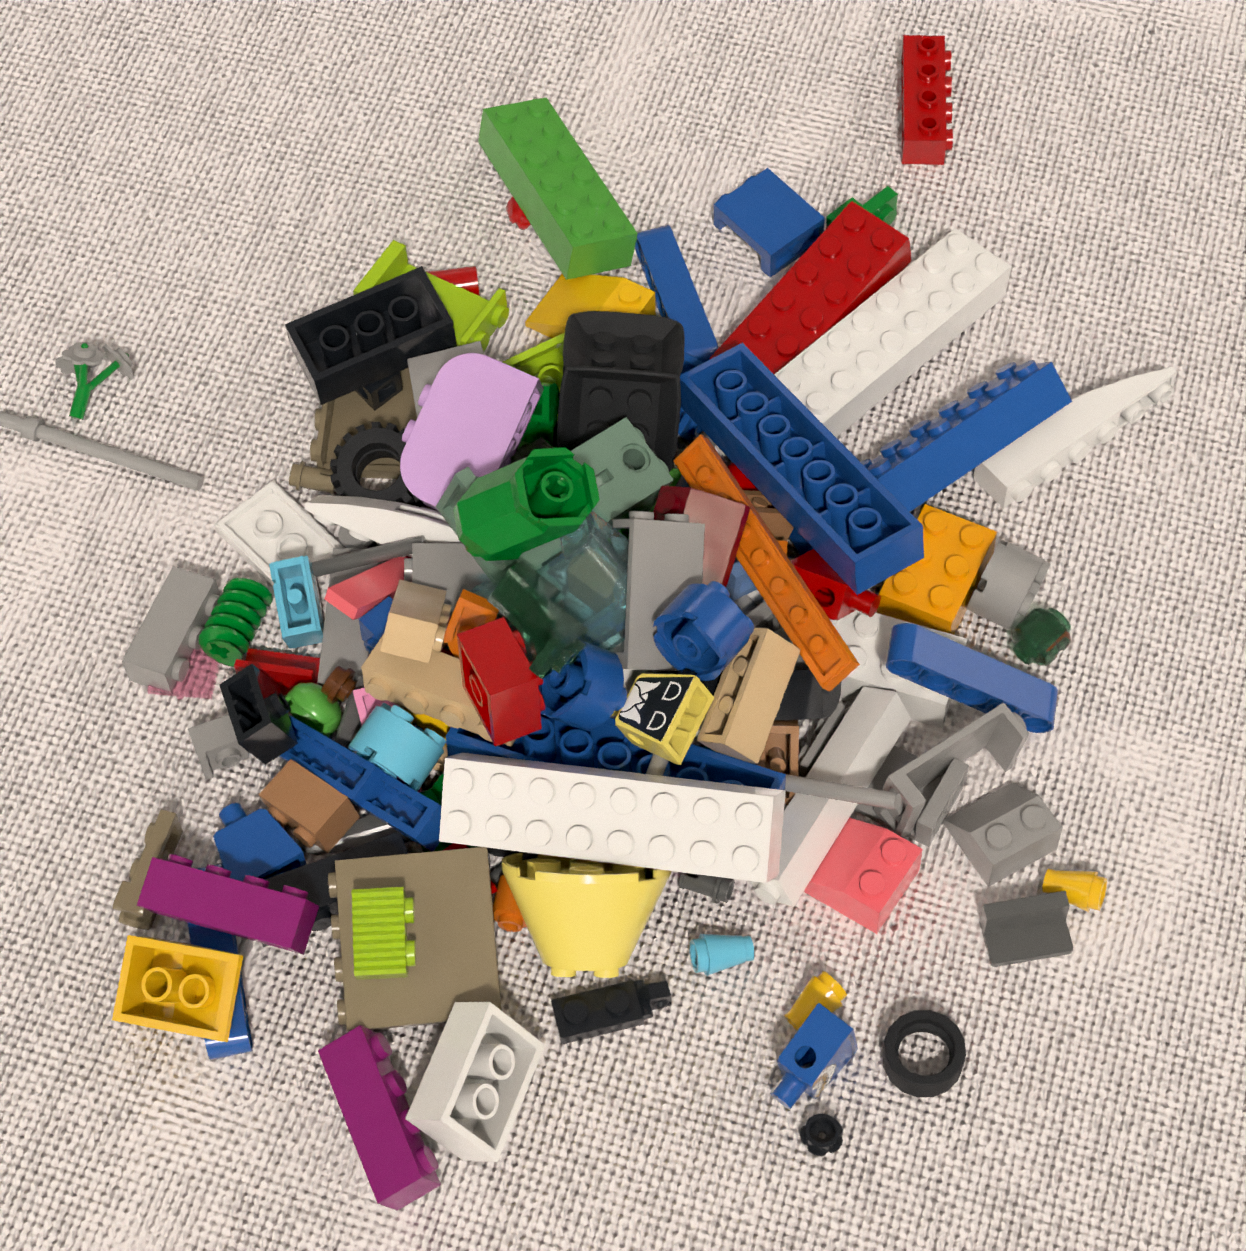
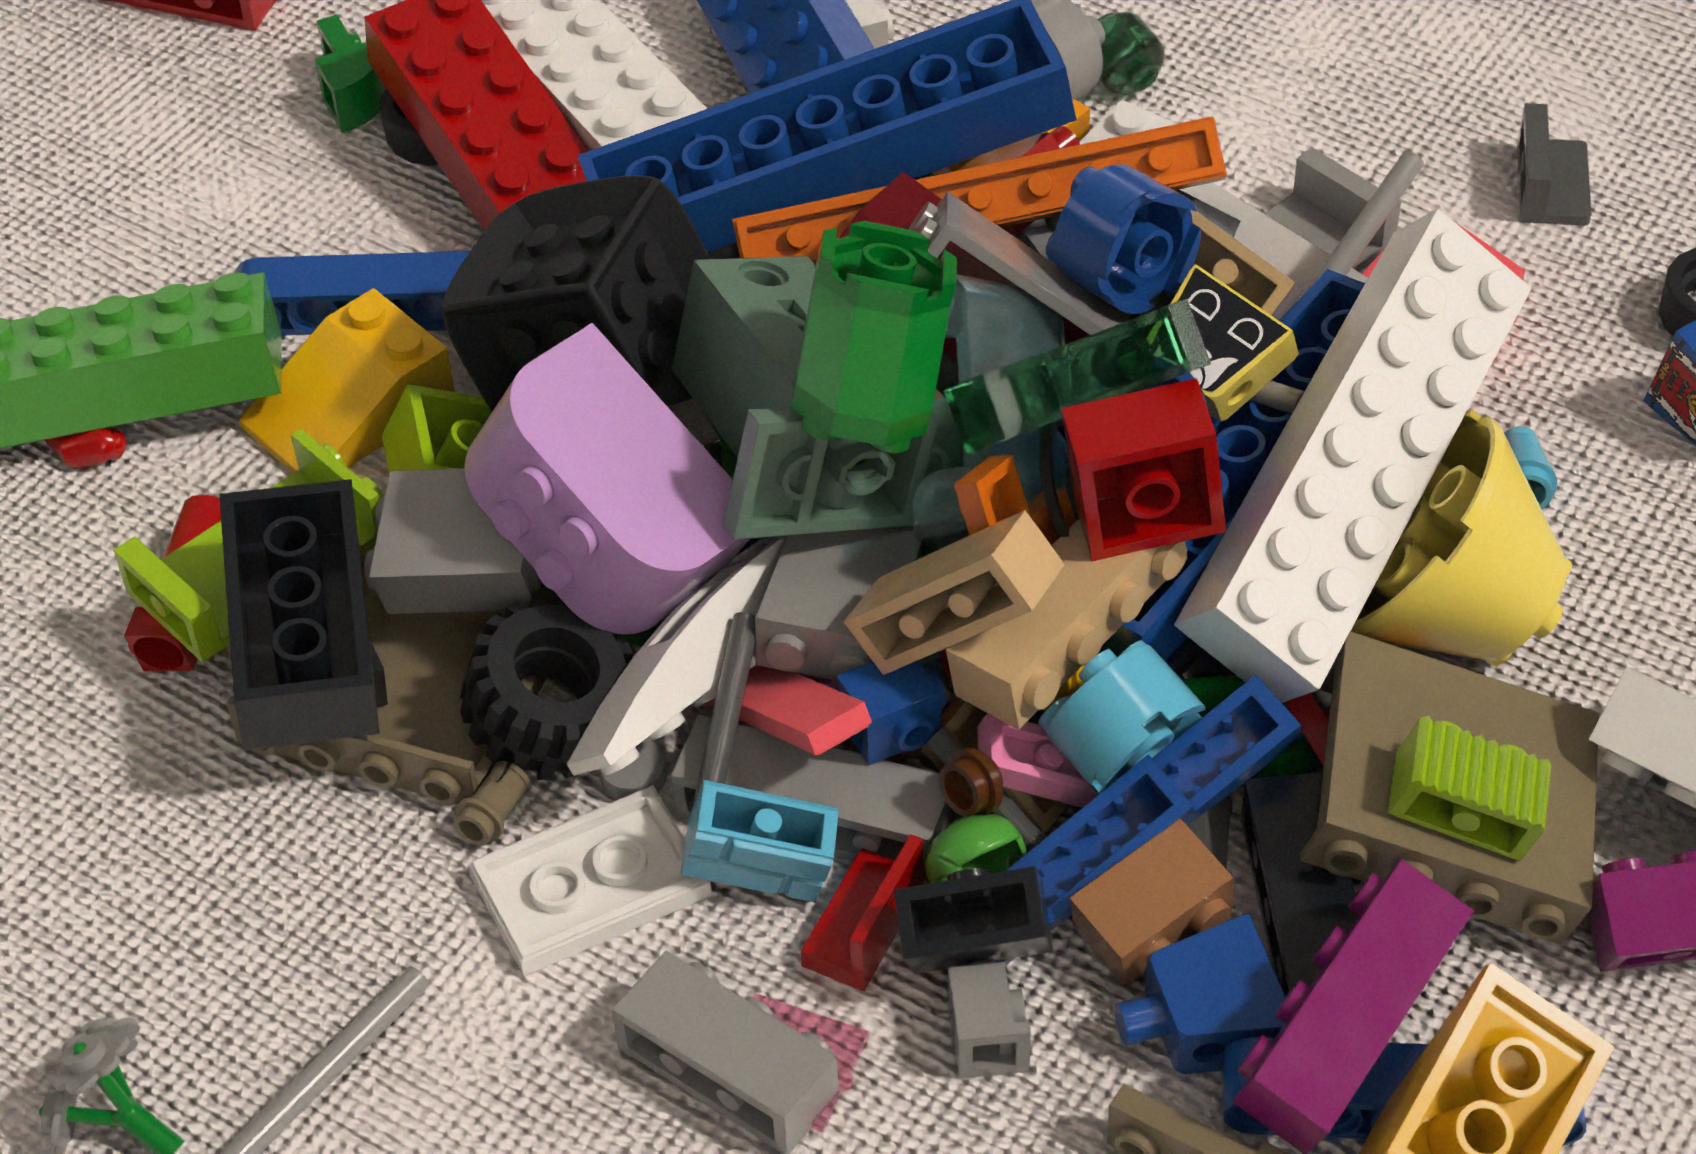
camera: 75 degrees left, 10 degrees down
(234, 620) = (753, 951): green piece -> none
(608, 1009) = (1589, 635): black hinge -> none
(770, 220) = (287, 159): blue panel -> none
(821, 990) = (1621, 386): yellow cone -> none
(969, 676) = (1194, 91): beam -> none
(998, 731) = (1306, 161): light grey panel -> none
(1005, 832) = (1415, 120): light grey slope -> none
(1082, 888) = (1502, 110): yellow cone -> none

